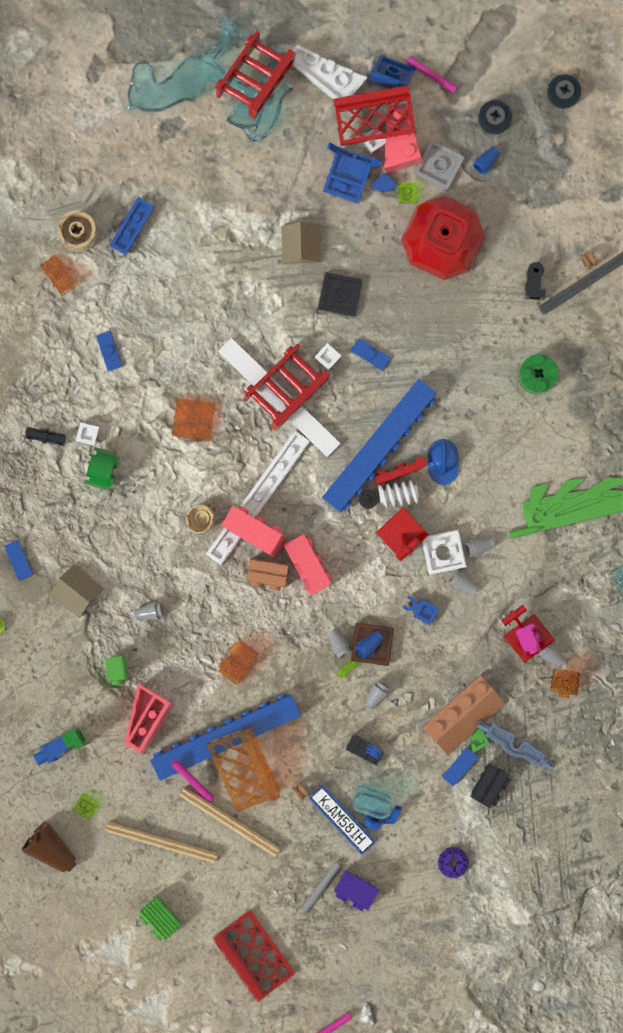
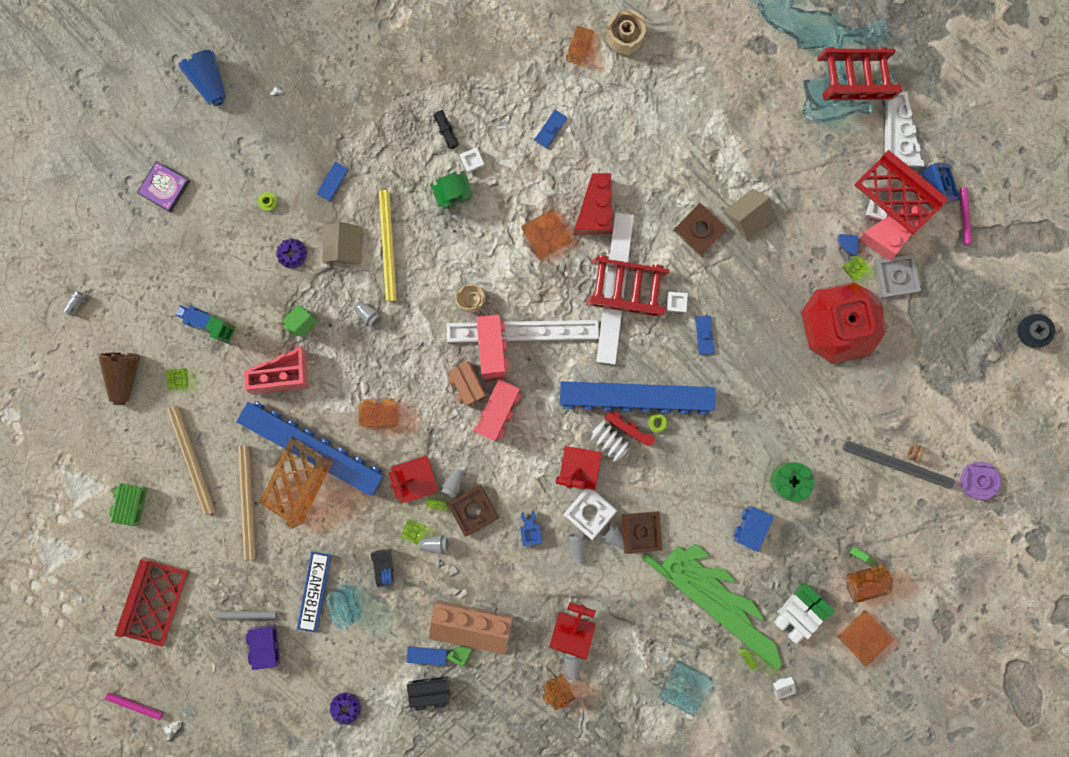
camera: 55 degrees right, 0 degrees up
(61, 635) = (297, 259): none -> dark purple gear
(105, 554) = (387, 245): none -> light yellow axle
(132, 226) = (662, 72): blue plate -> none
(192, 780) = (255, 448): dark pink bar -> none
(203, 362) = (596, 210): none -> red wedge
(292, 303) = (697, 242): none -> reddish brown piece
(300, 791) = (311, 541): medium nougat bush -> none
(312, 673) = (413, 479): none -> red plate
(340, 294) = (733, 275): black tile -> none
(348, 174) = (835, 209): blue piece -> none
(353, 705) = (413, 531): none -> clear neon green tile
(363, 503) = (593, 420): black plate -> none
(368, 645) = (469, 508): blue cone -> none
(376, 824) = (330, 625): blue plate -> none
(408, 440) = (662, 427): none -> lime plate
(443, 461) = (663, 457): blue piece -> none
(486, 160) = (931, 310): blue cone -> none
(489, 523) = (641, 532): none -> reddish brown tile
(493, 124) = (965, 294): black wheel -> none
(506, 741) = (478, 698): sand blue piece -> none
(529, 639) = (571, 638): dark pink brick -> none
(533, 282) = (864, 421): black leg -> none
(551, 433) = (752, 528): none -> blue brick

